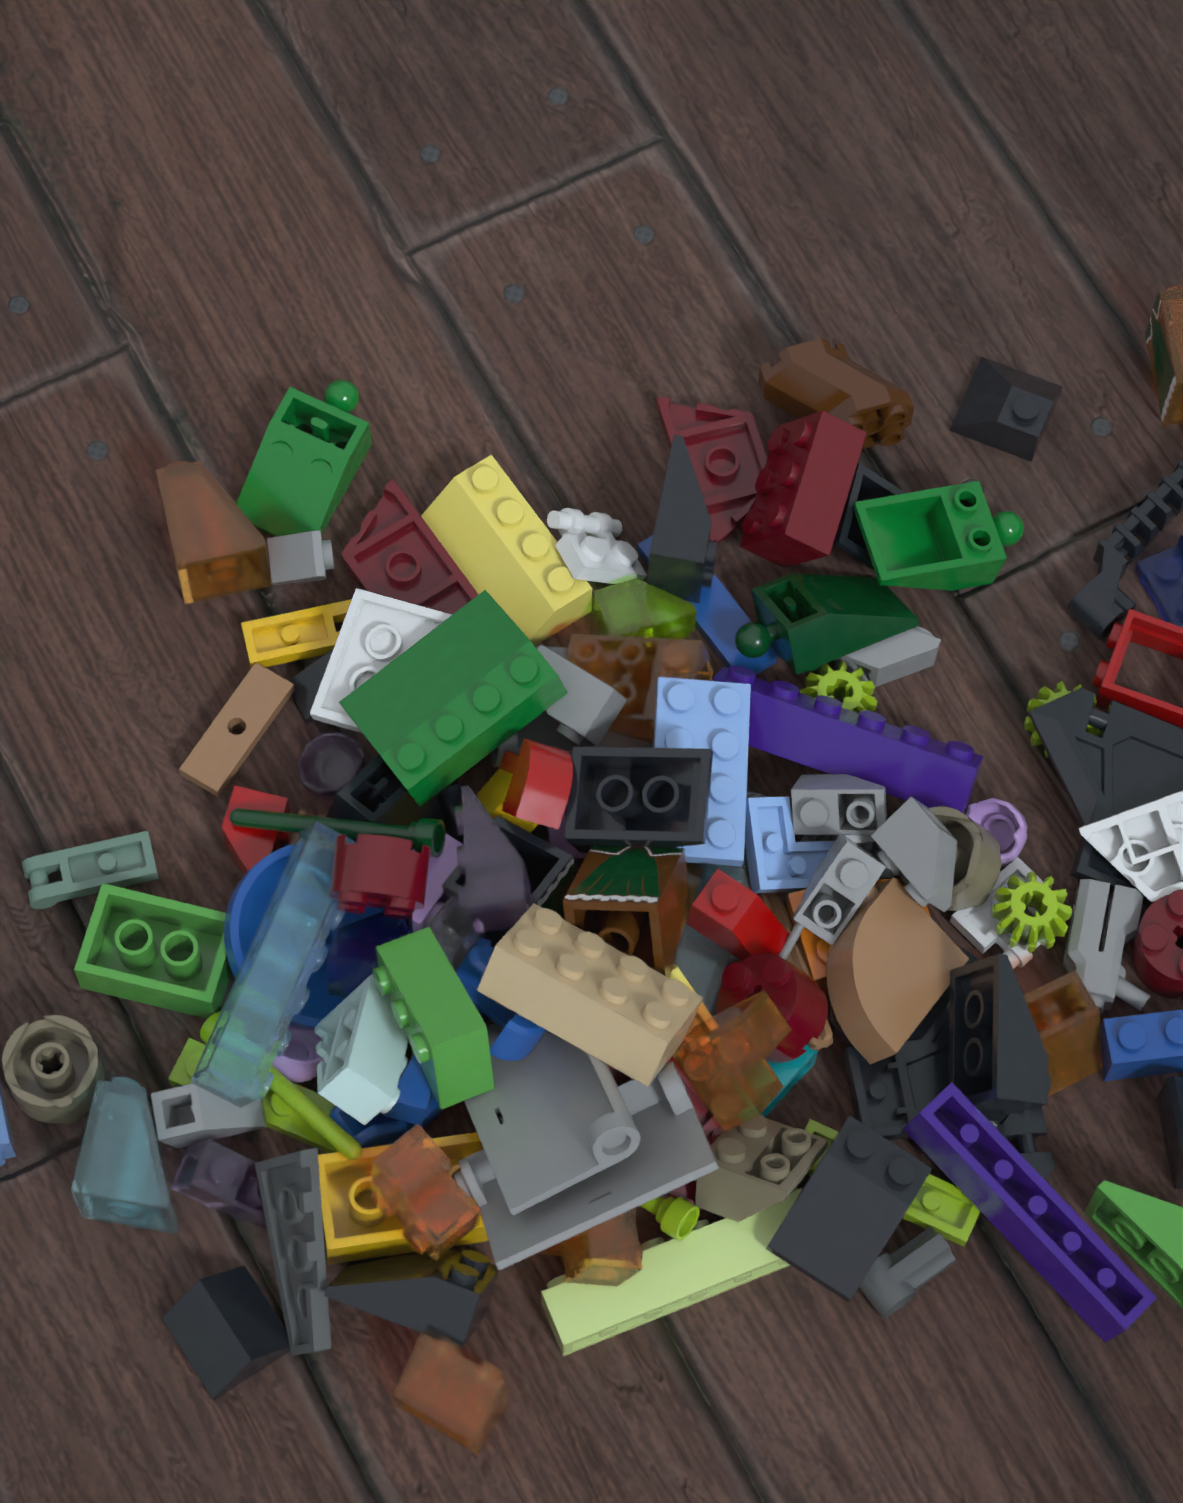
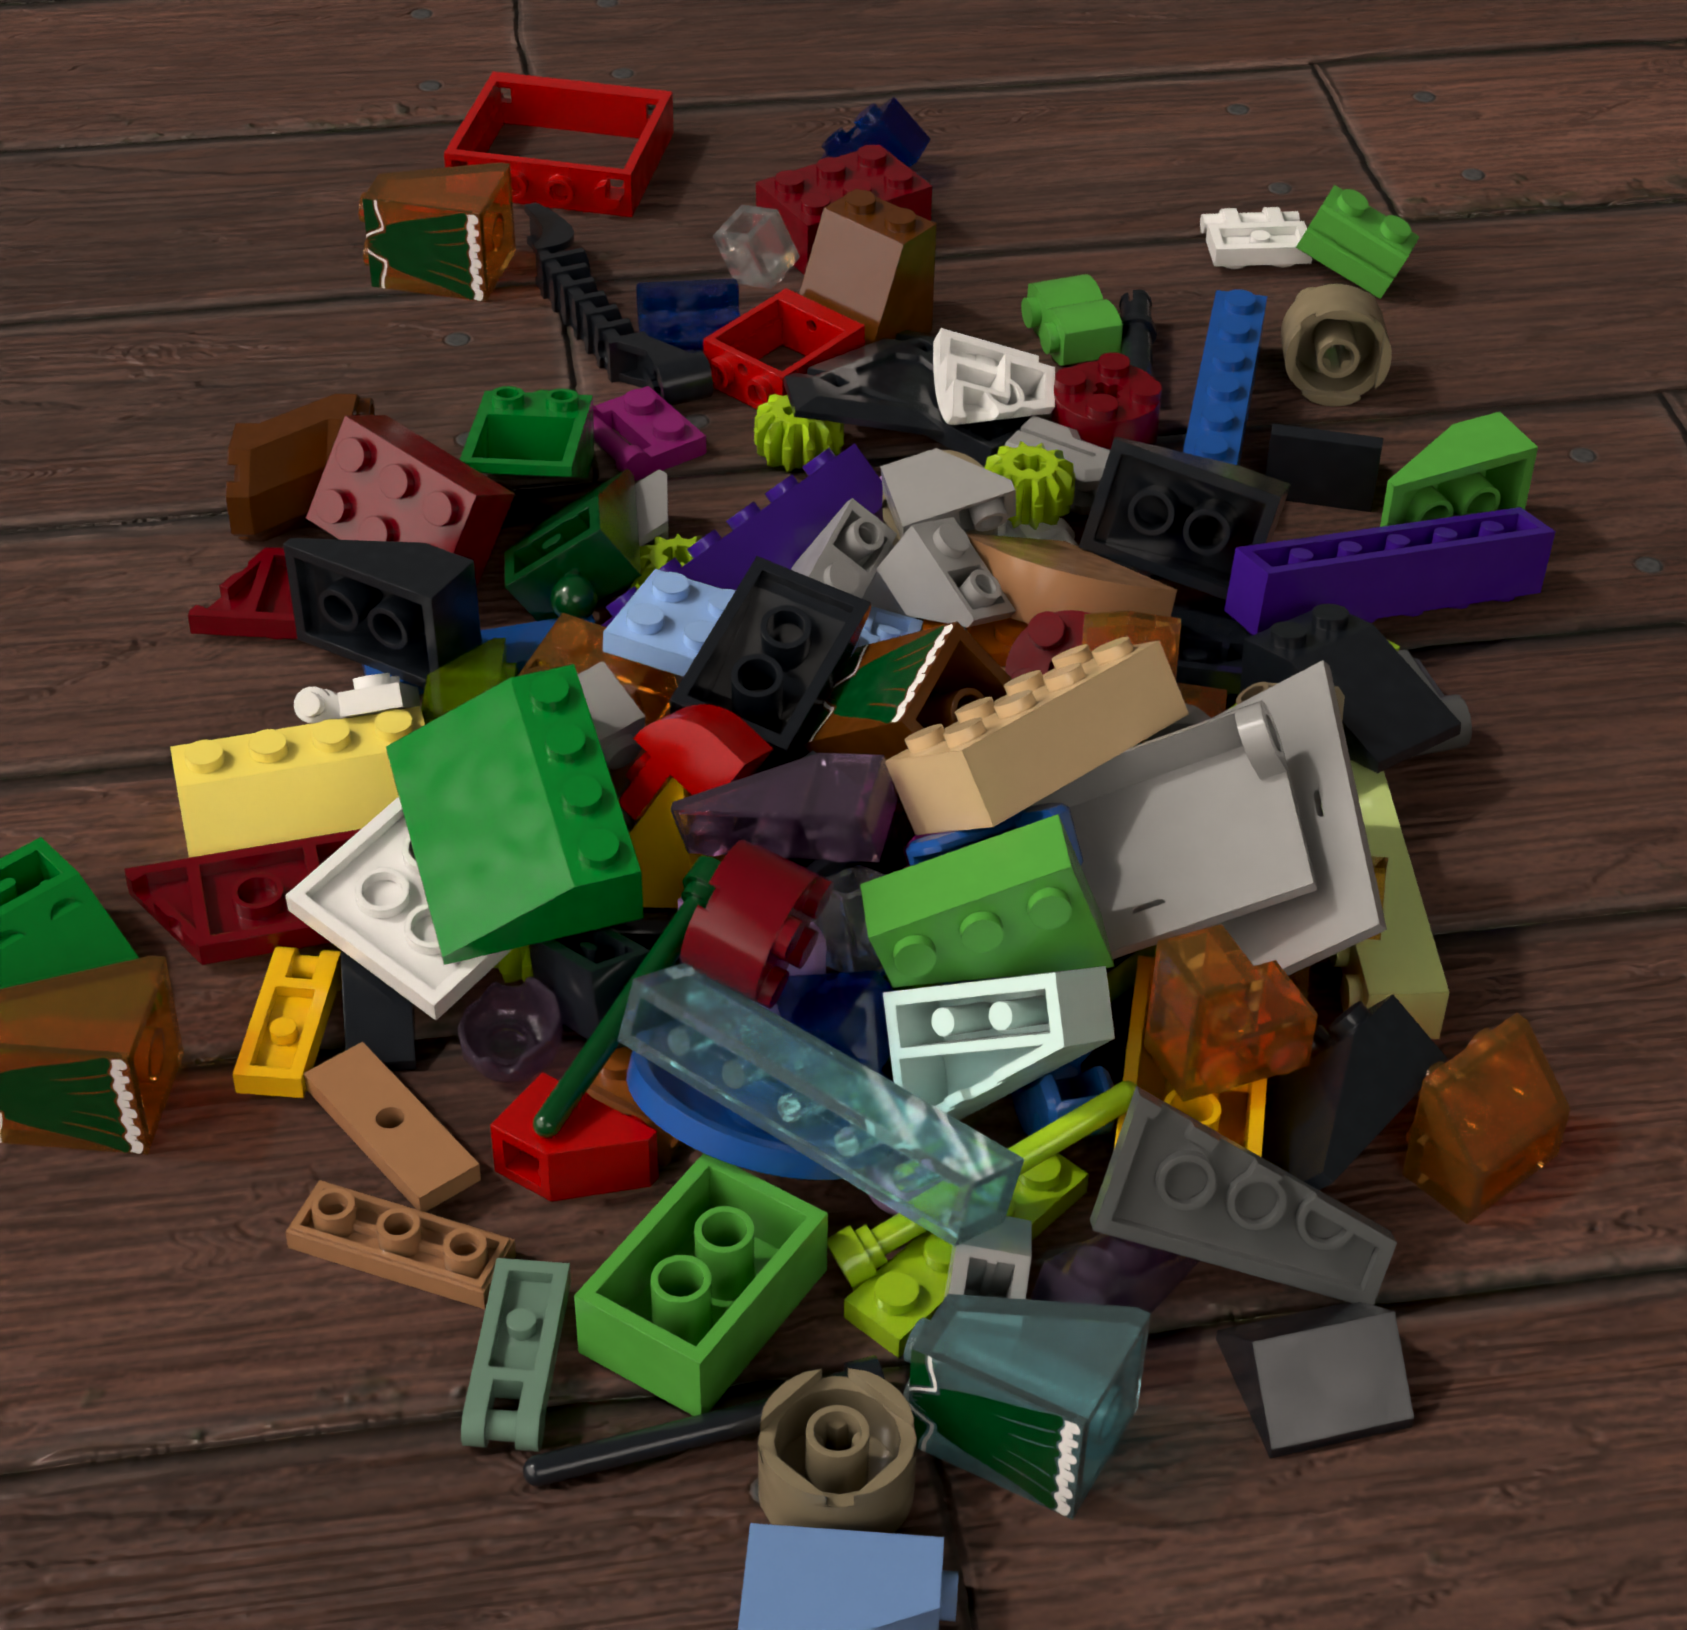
camera: 70 degrees left, 25 degrees down
(118, 1061) = (658, 1439): none -> black piece
(157, 795) = (398, 1243): none -> medium nougat tile
(299, 557) = (197, 950): light grey slope -> none
(1006, 409) = (406, 374): black slope -> none
(1034, 612) = (652, 426): none -> magenta plate

